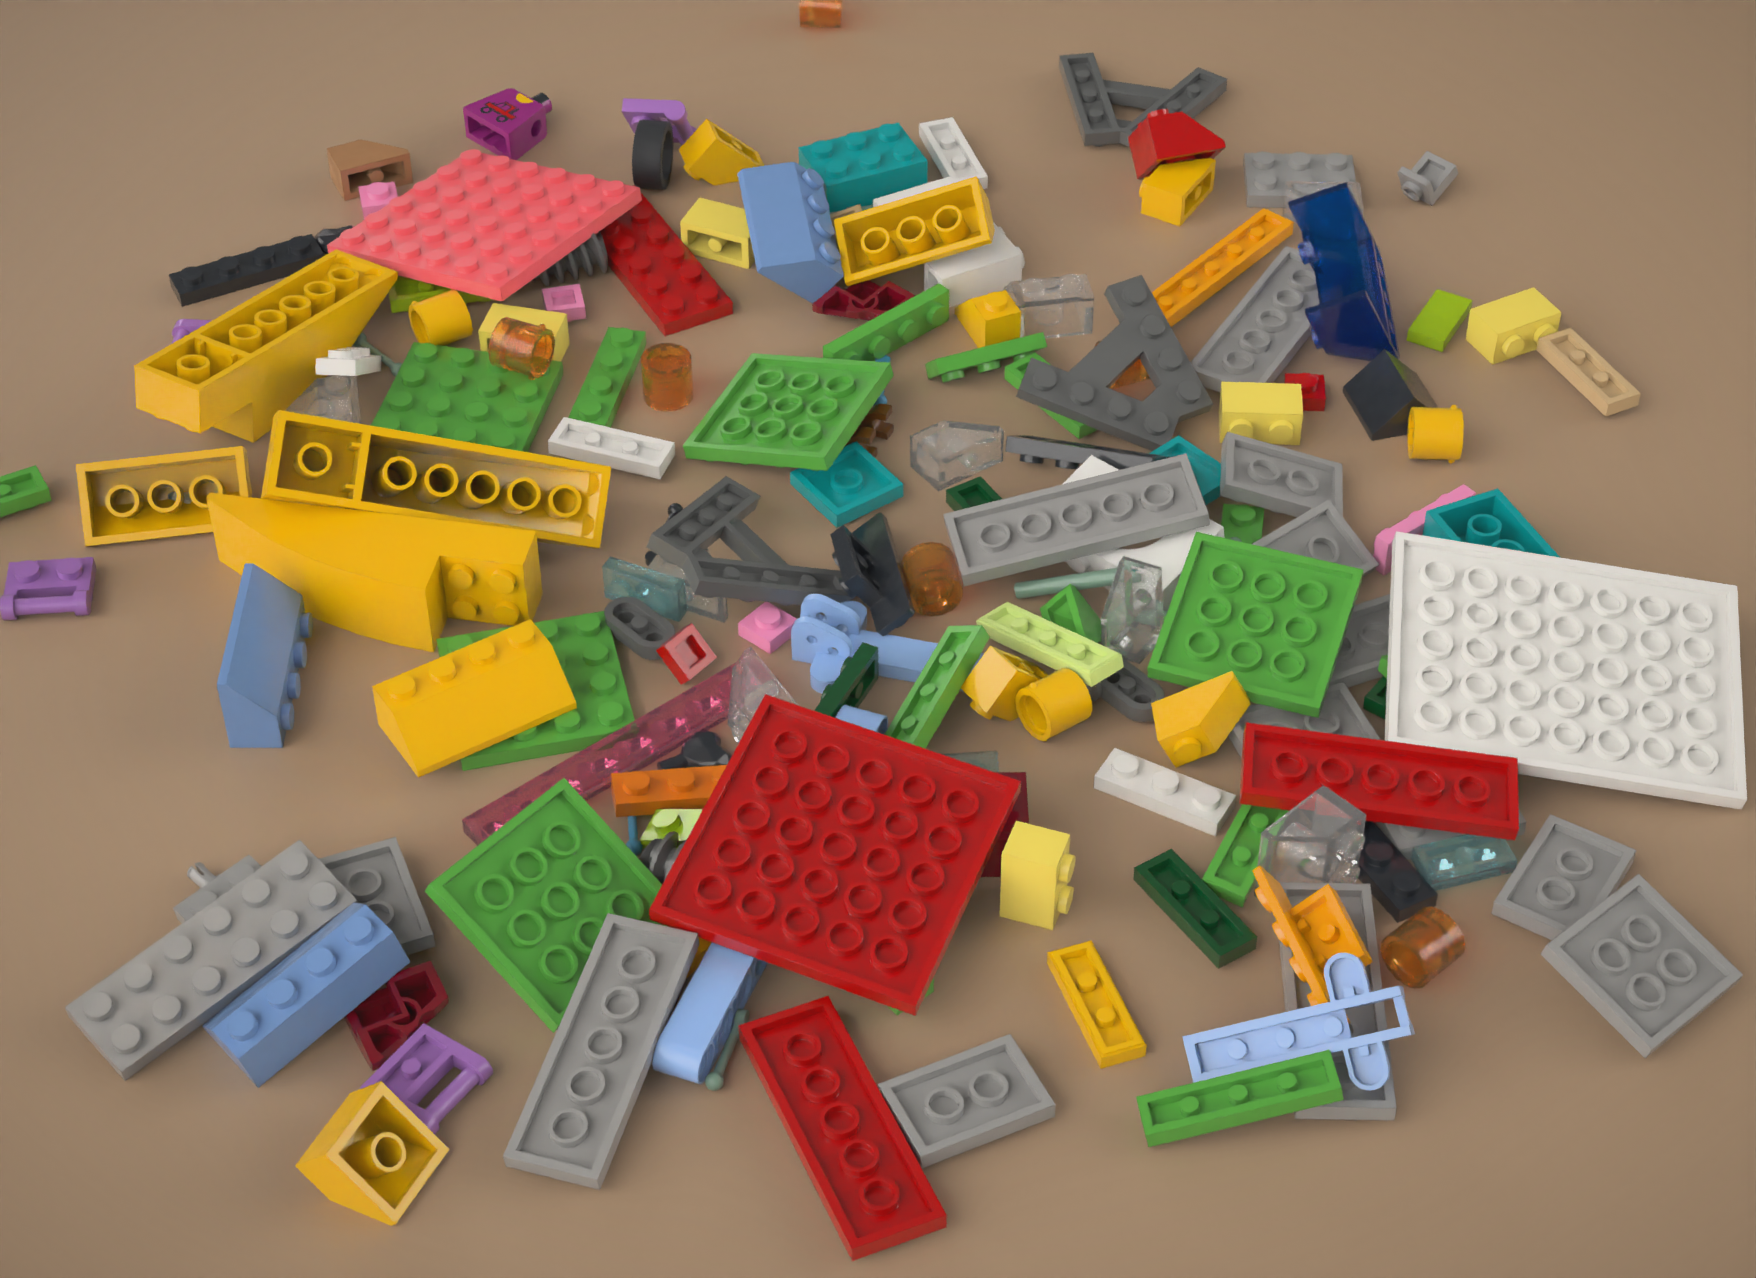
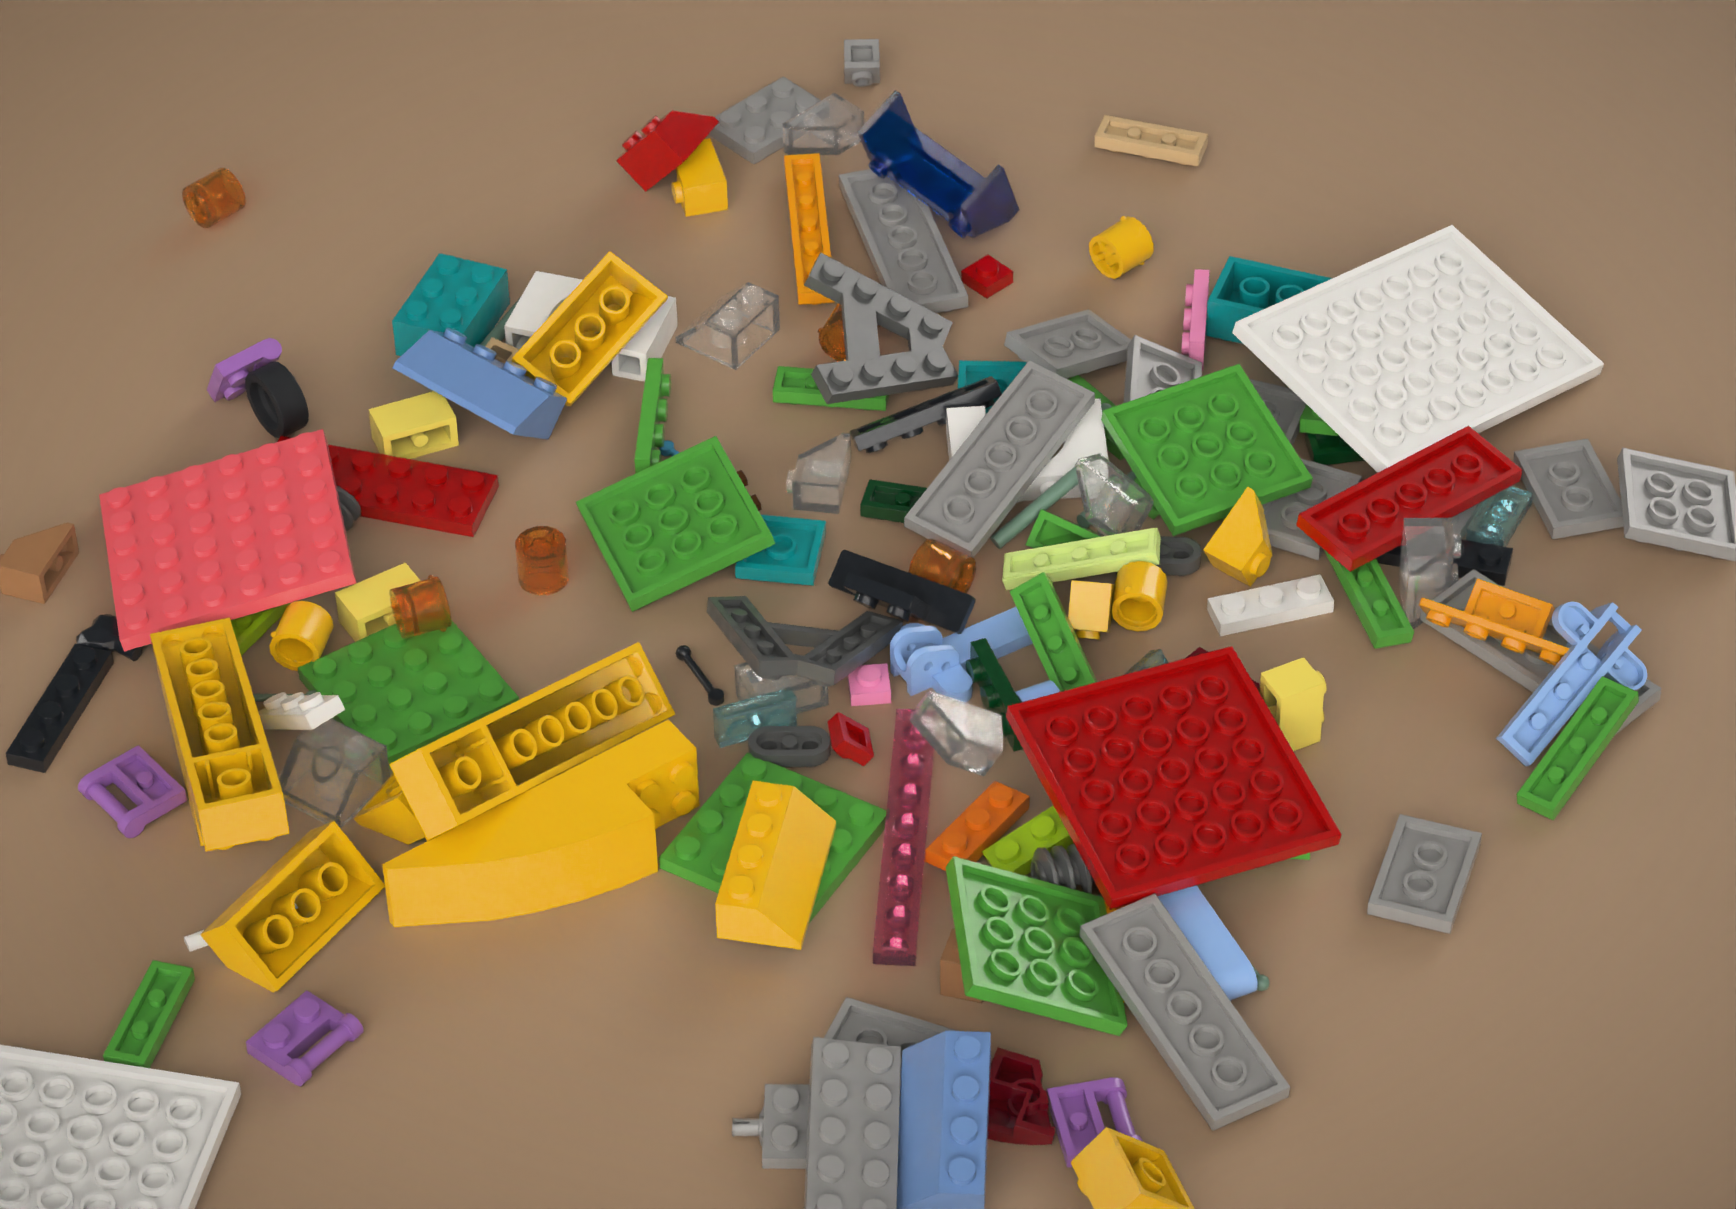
camera: 45 degrees left, 0 degrees up
(263, 661) = (572, 961): medium blue slope -> none
(376, 196) = (80, 583): bright pink plate -> none
(507, 122) = (98, 452): magenta torso -> none
(565, 300) = (372, 559): bright pink plate -> none
(609, 376) = (490, 599): bright green plate -> none
(611, 447) = (574, 640): white plate -> none
(698, 751) = (952, 799): black rock -> none
(716, 155) = (320, 370): yellow slope -> none
(842, 1128) = (1375, 944): red plate -> none
(861, 300) = (603, 409): dark red slope -> none
(951, 151) = (518, 261): white plate -> none
(984, 358) = (744, 393): bright green plate -> none
(990, 318) = (709, 363): yellow slope -> none
(1093, 97) = (537, 144): dark grey plate -> none
(1096, 1004) = (1410, 762): yellow tile -> none
(1195, 908) = (1391, 660): dark green plate -> none
(1261, 411) = (988, 309): light yellow brick -> none
(1384, 395) = (1050, 245): black slope -> none
(1422, 947) = (1553, 577): clear orange piece -> none
(1439, 320) = (1006, 154): lime tile -> none
(1511, 325) = (1065, 138): light yellow brick -> none

